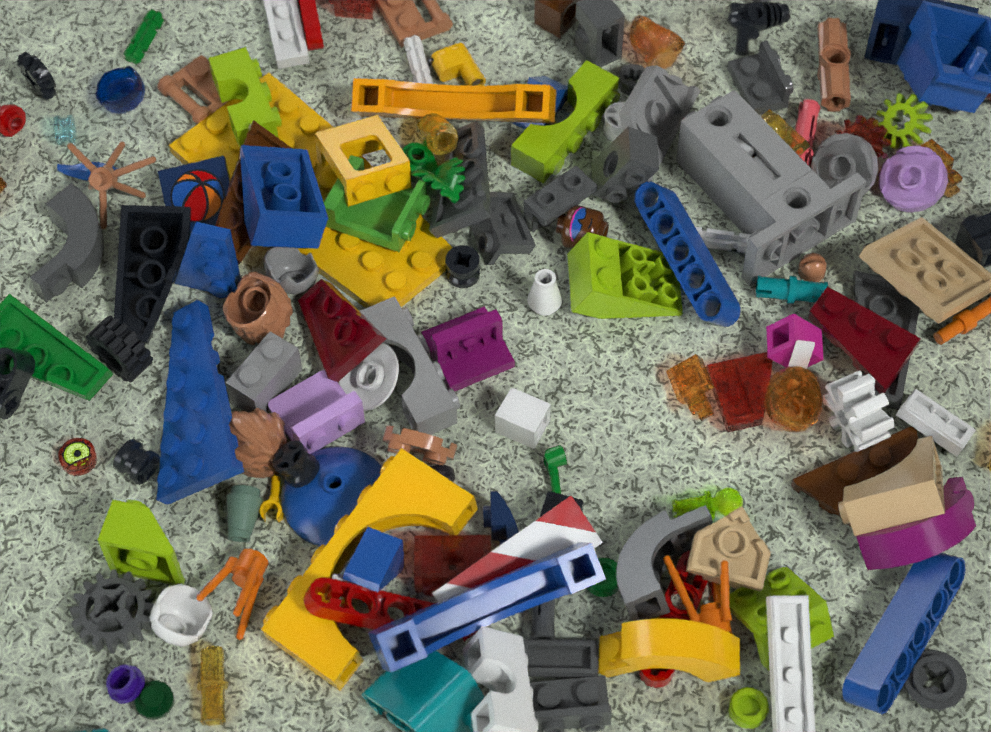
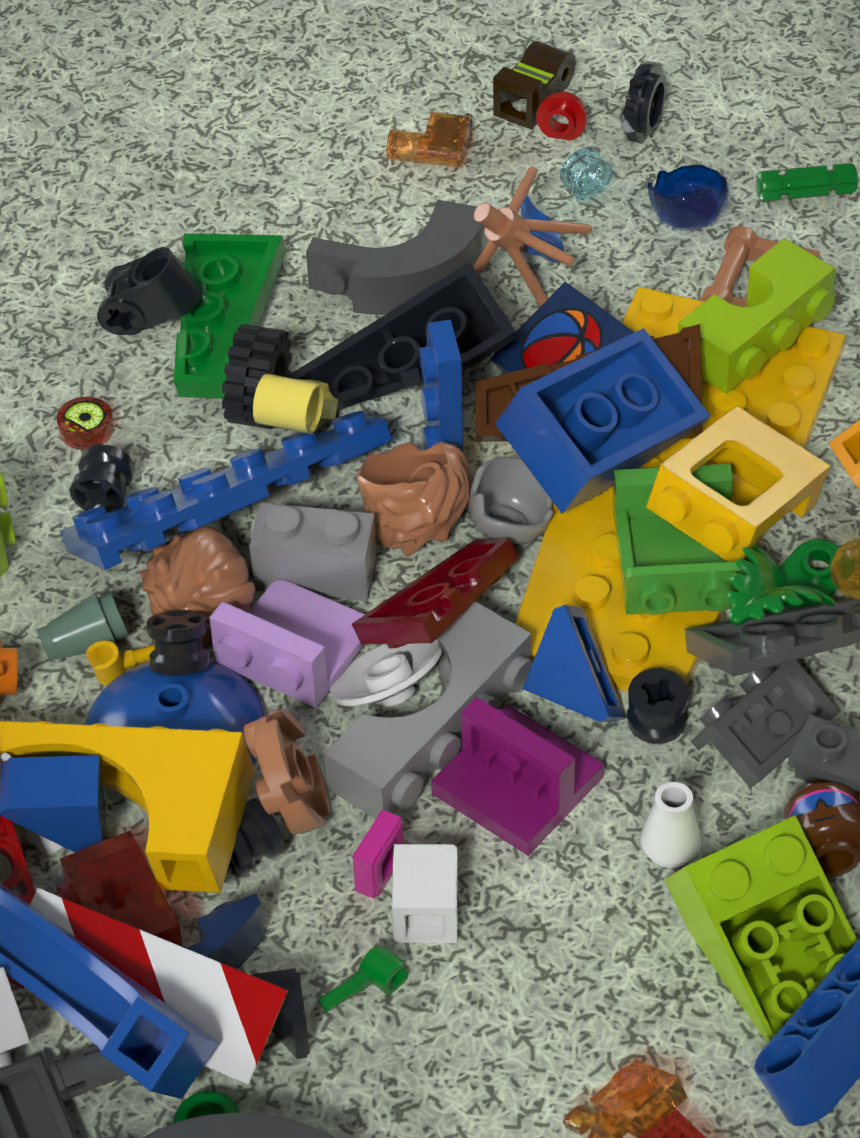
camera: 65 degrees right, 10 degrees down
(161, 336) = (293, 403): none -> light yellow piece
(424, 292) = (572, 670): none -> blue slope
(486, 429) = (375, 854): none -> dark pink tile

